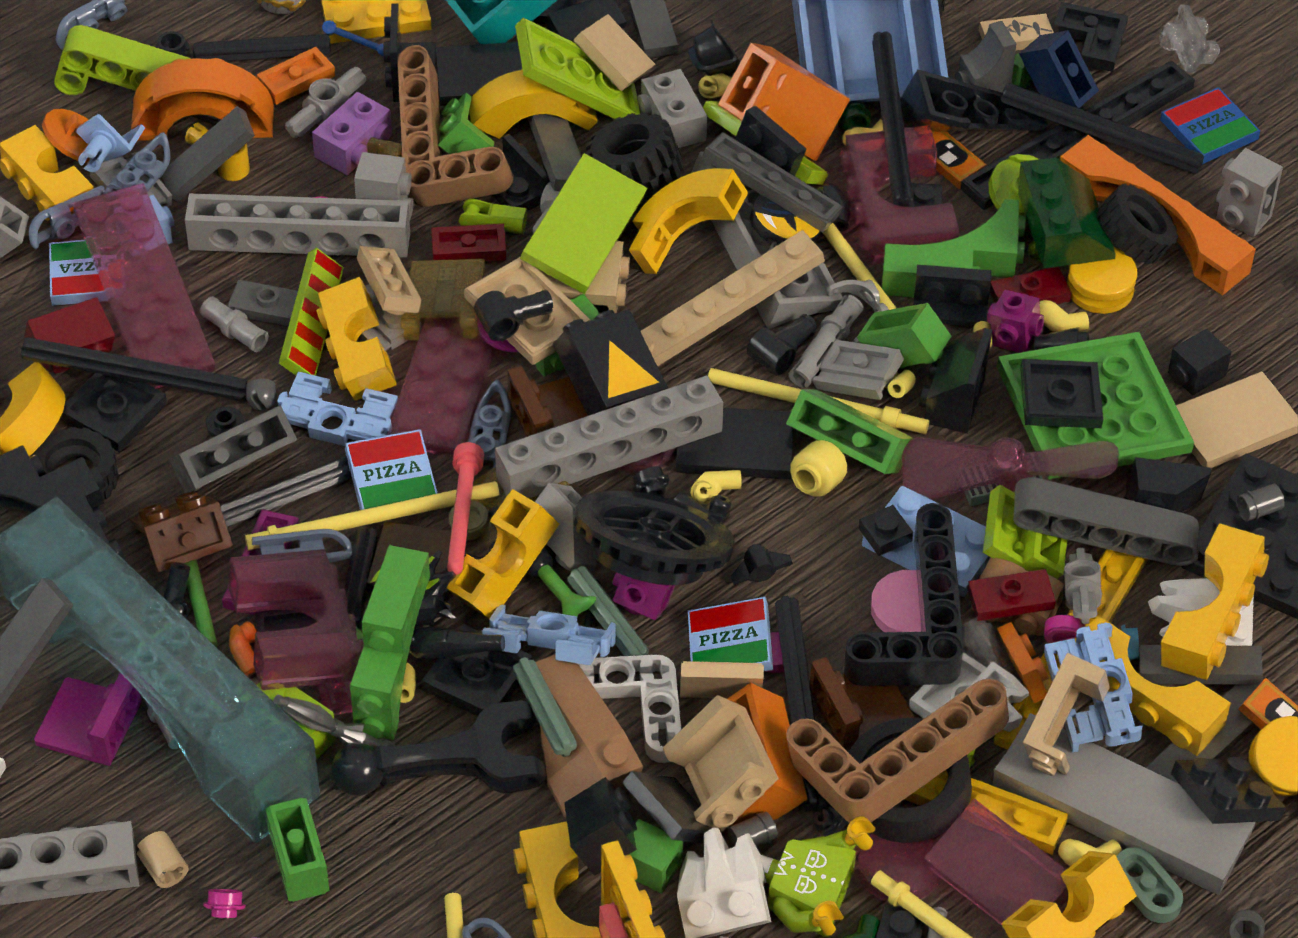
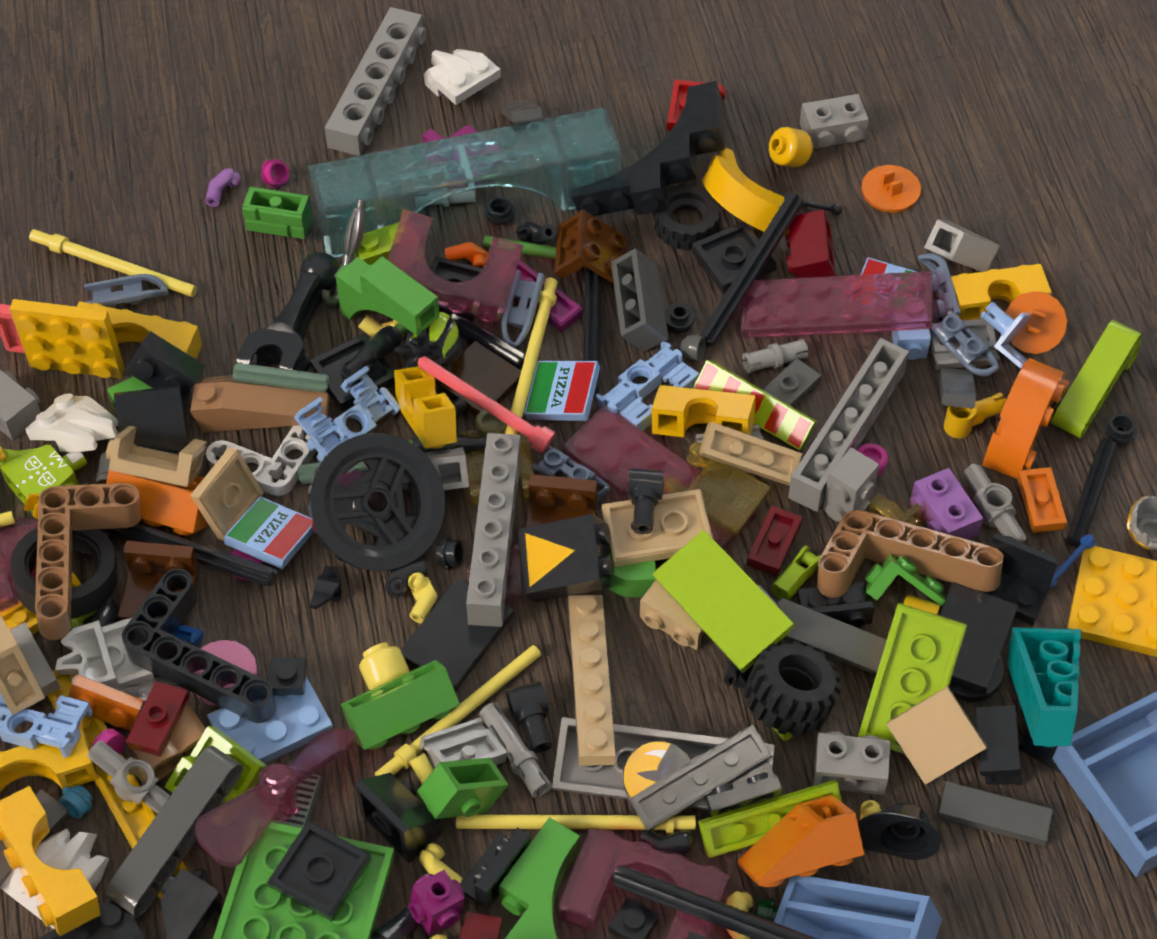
camera: 120 degrees right, 5 degrees up
(162, 859) = (328, 152): tan piece -> none
(681, 204) = (715, 687): yellow arch -> none
(864, 289) = (547, 806): light grey cap -> none

